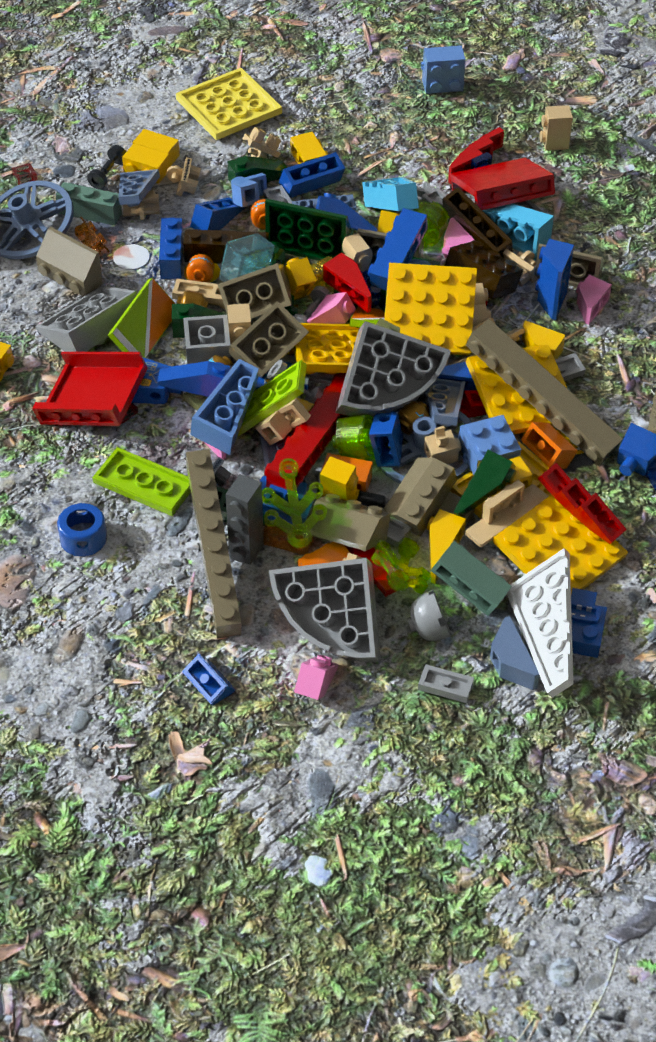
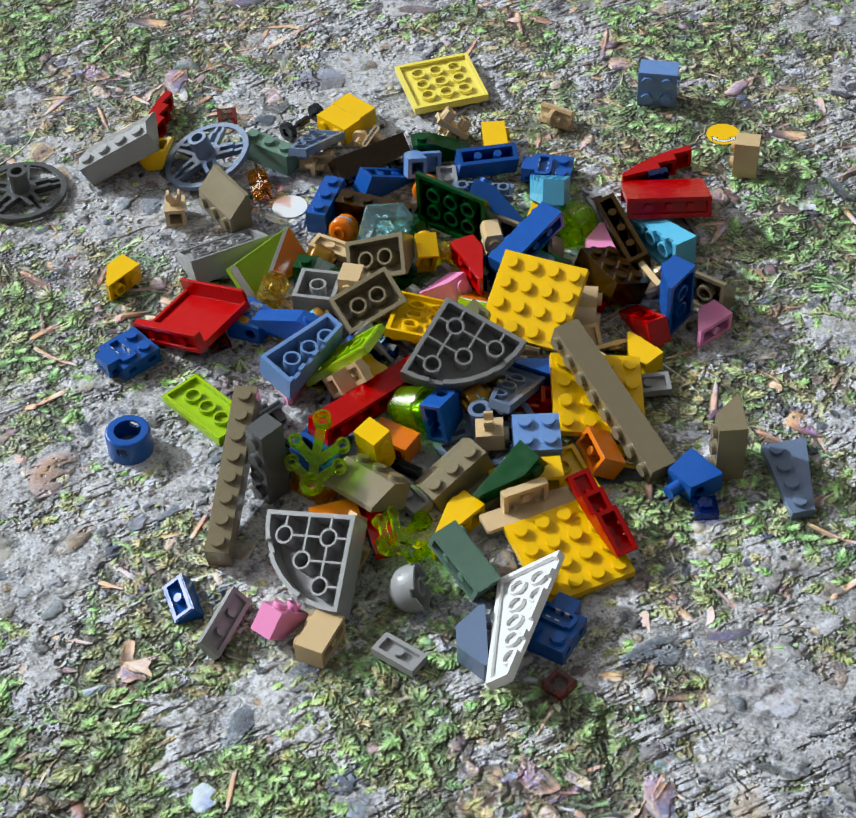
camera: 20 degrees right, 5 degrees down
(19, 281) = (175, 210): none -> tan brick
(38, 442) = (127, 355): none -> blue piece
(160, 345) = (272, 289): none -> clear yellow wheel
(199, 190) = (377, 155): none -> dark brown brick
(263, 693) = (223, 623): none -> light grey plate
(357, 118) = (556, 116): none -> tan hips
(363, 685) = (319, 638): none -> tan brick
(371, 170) = (546, 165): none -> blue piece
(519, 110) = (722, 133): none -> yellow sticker
(534, 309) = (647, 324): none -> red slope
(604, 676) = (559, 684): none -> clear smoke tile

